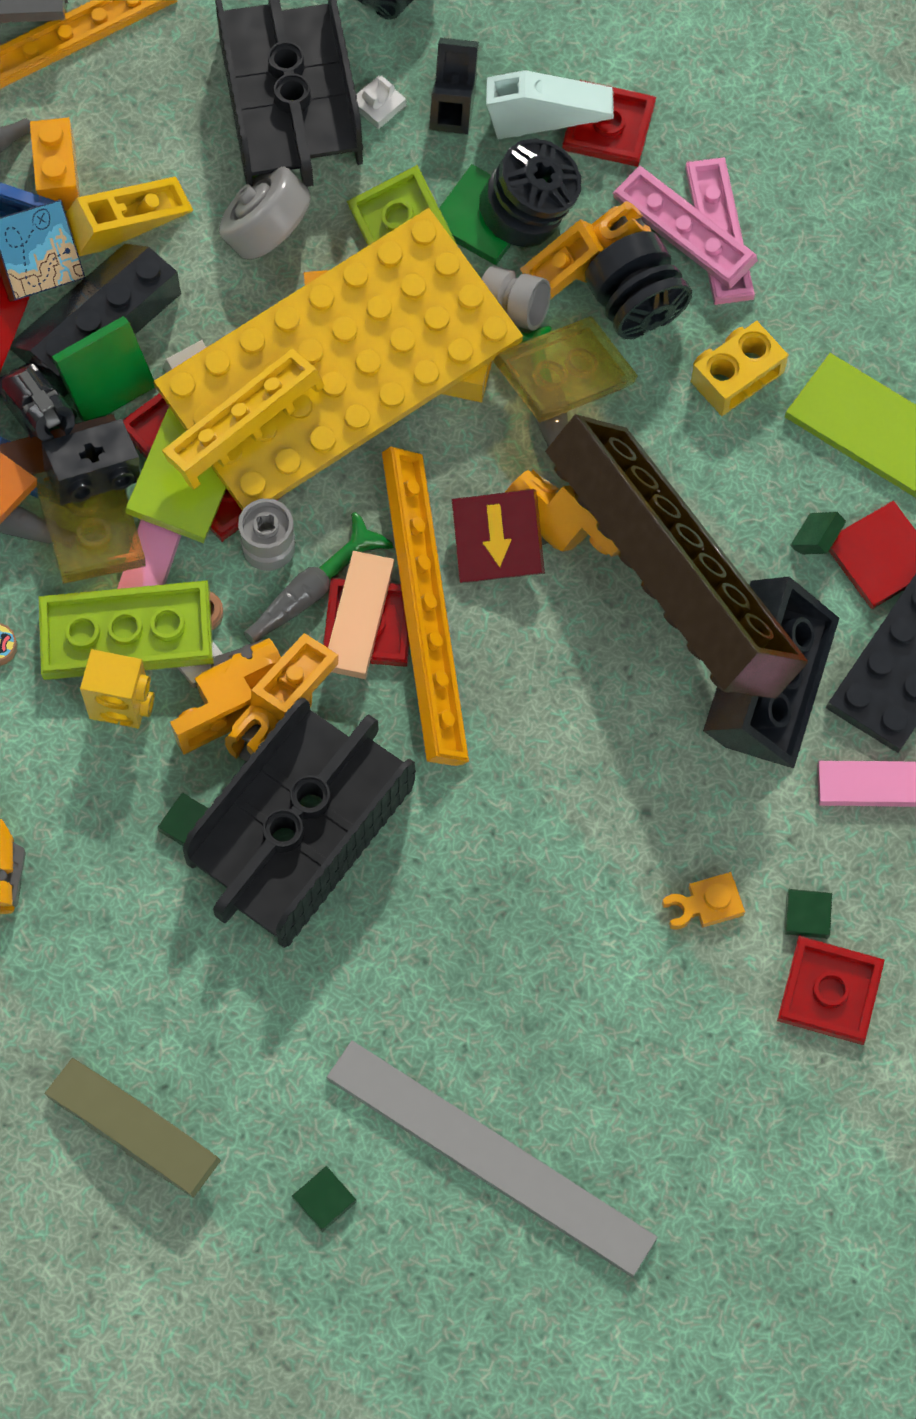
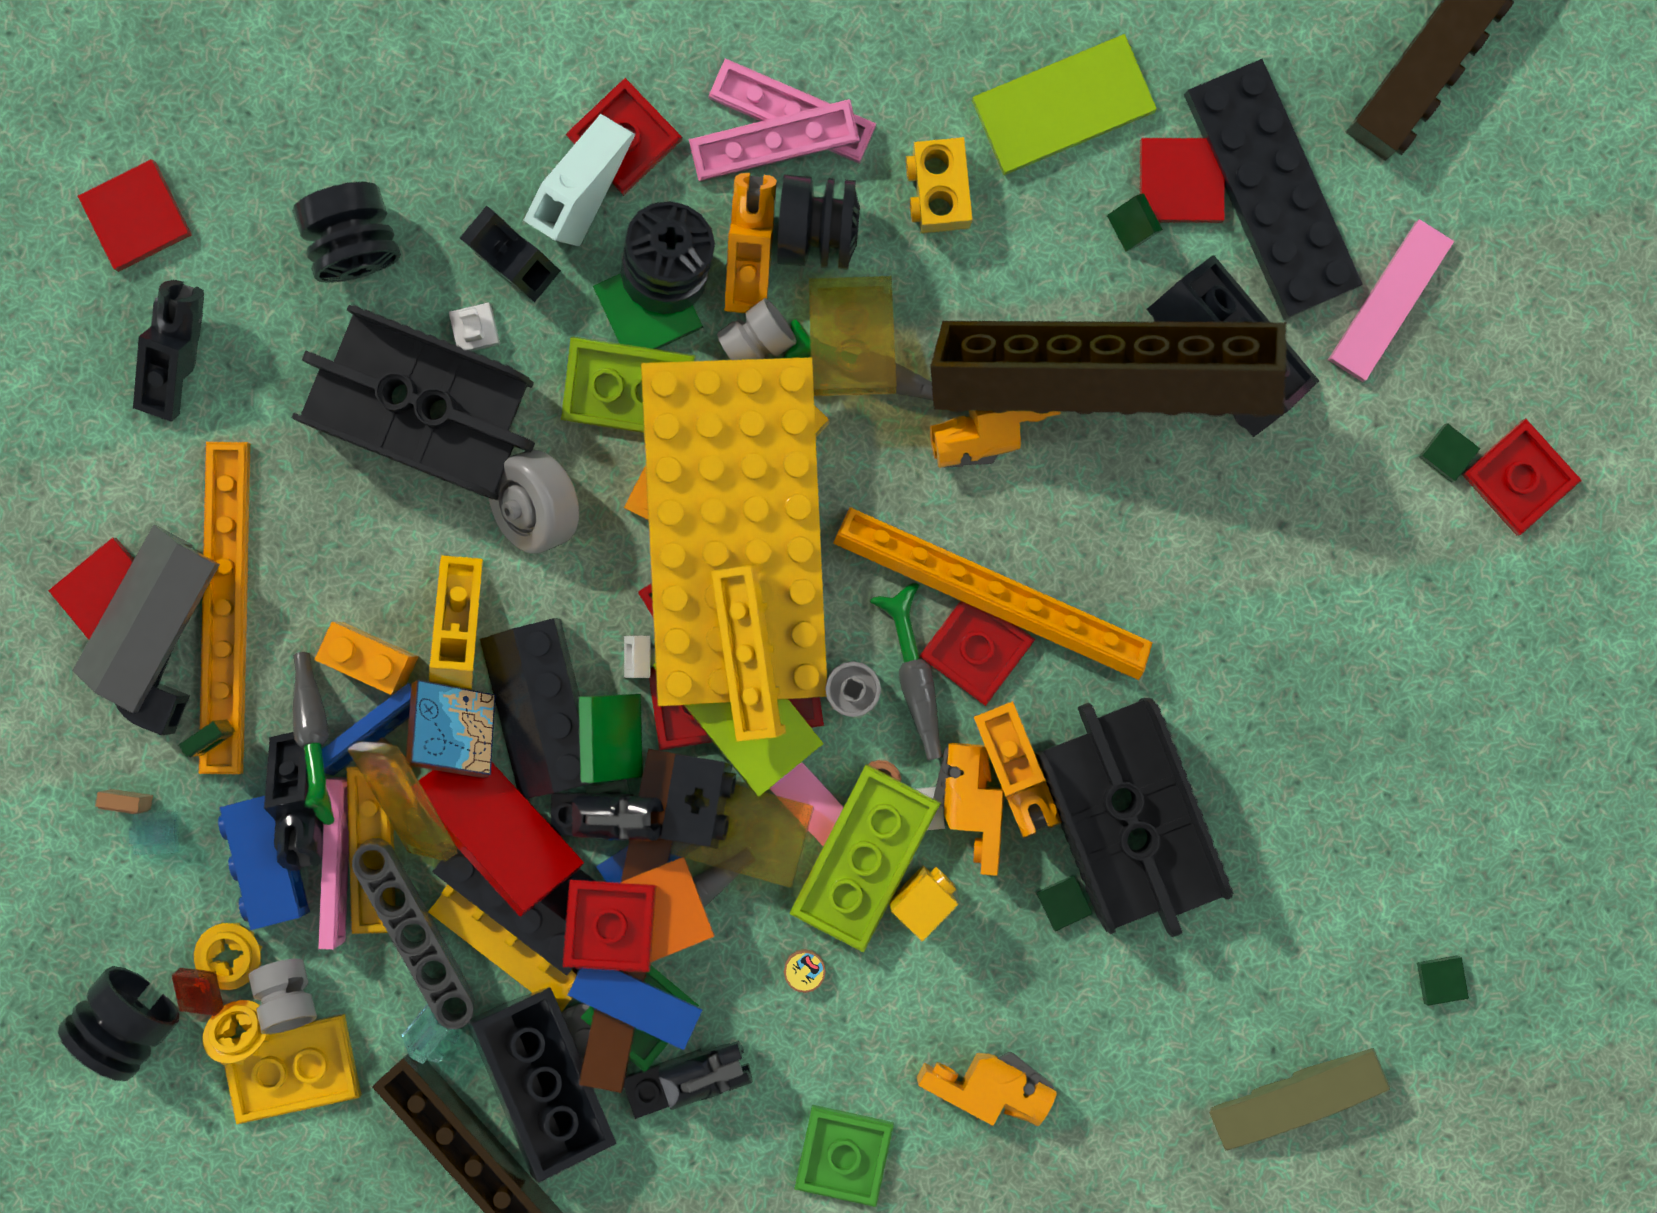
camera: 55 degrees left, 20 degrees up
(360, 612) = (972, 654): light nougat tile -> none
(492, 1158) = (1489, 831): light grey tile -> none
(498, 536) = (975, 494): dark red tile -> none
(710, 899) = (1392, 522): light orange plate -> none

